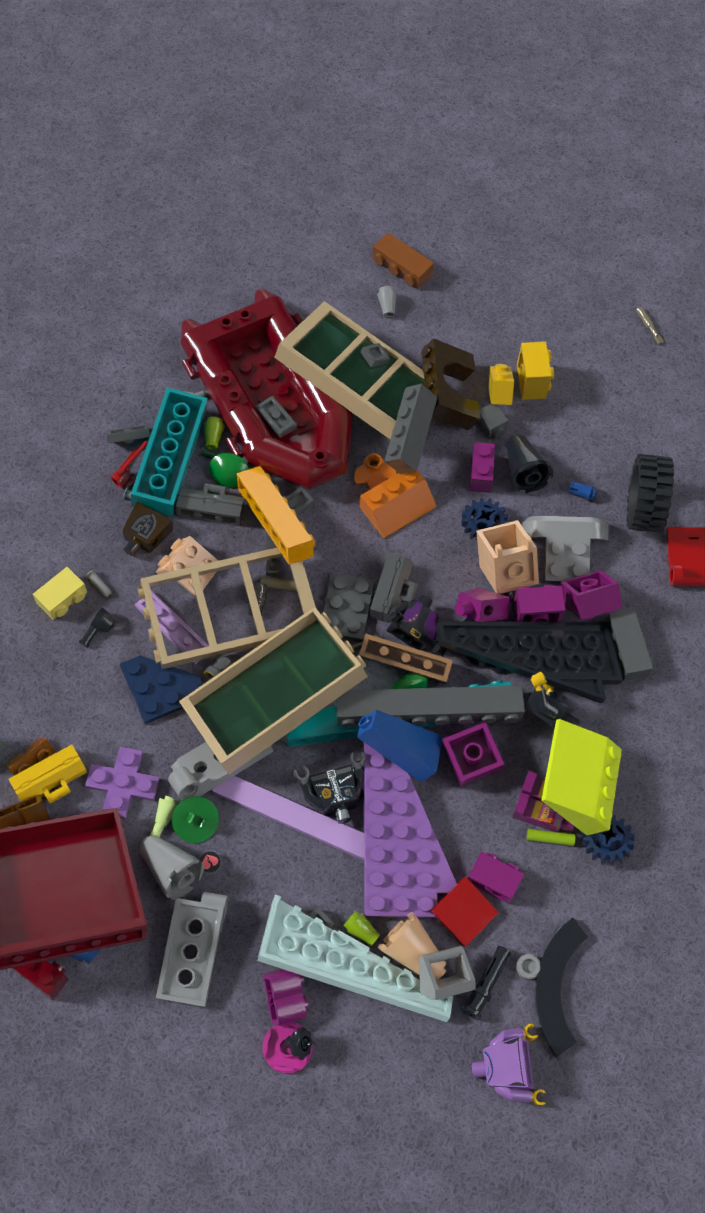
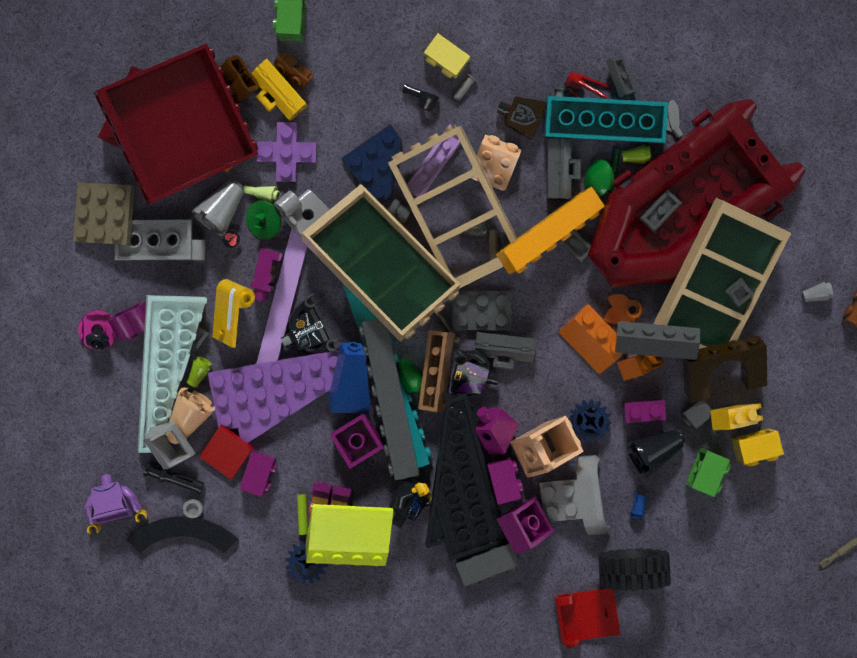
camera: 85 degrees right, 25 degrees up
(144, 1010) = (103, 213): none -> dark tan plate
(259, 823) = (264, 273): none -> magenta hips
(296, 871) = (229, 298): none -> yellow door
(433, 464) = (638, 365): none -> orange slope
(554, 417) = (708, 472): none -> bright green brick

